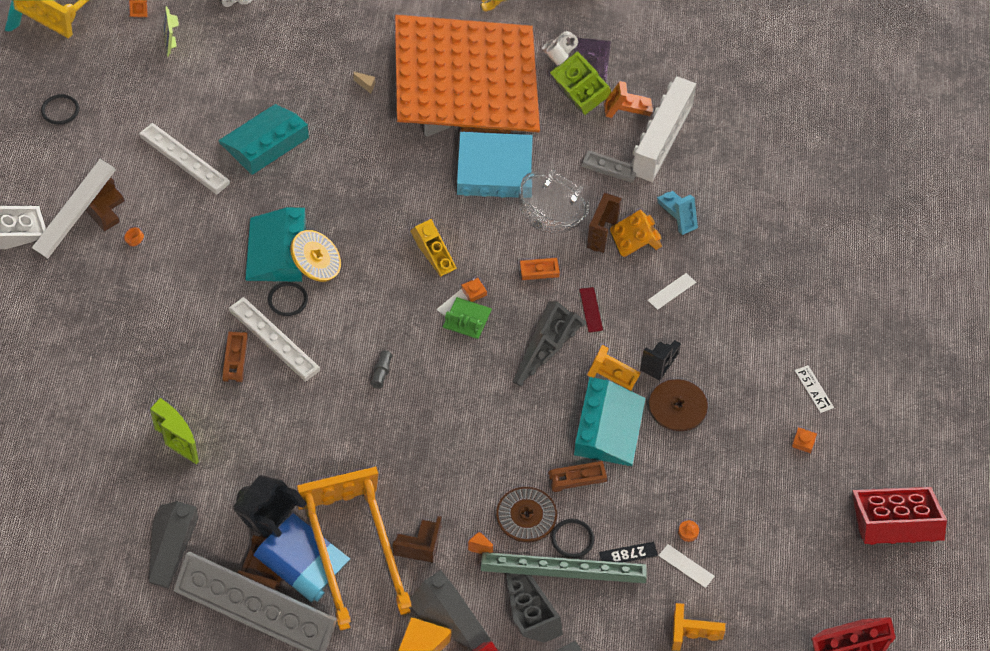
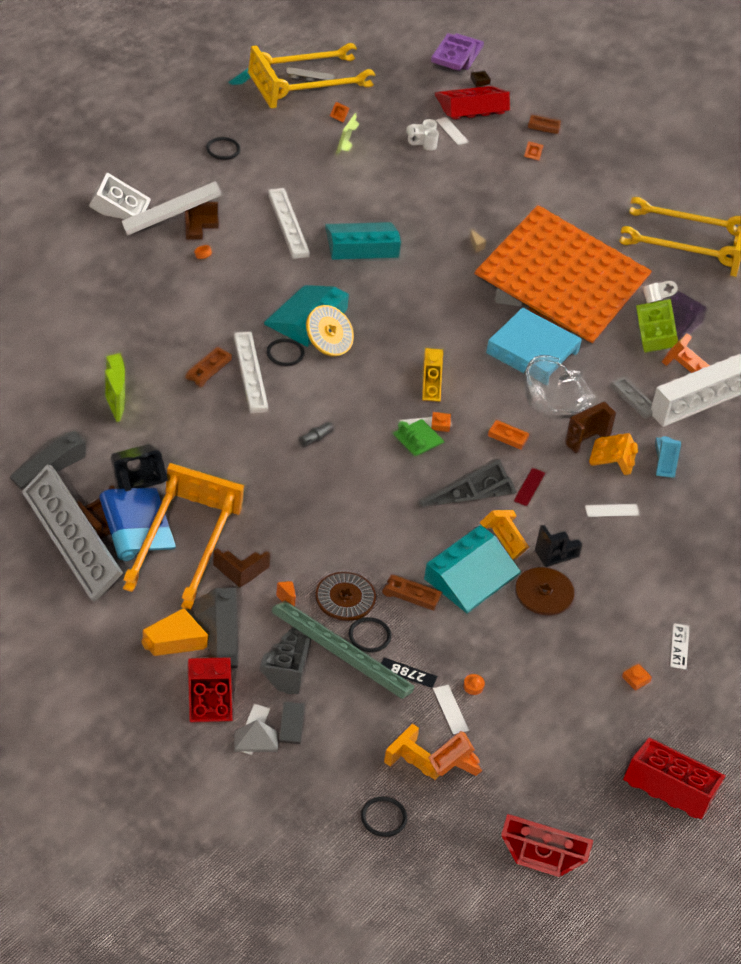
camera: 30 degrees right, 10 degrees down
(733, 613) = (458, 753): none -> orange bracket

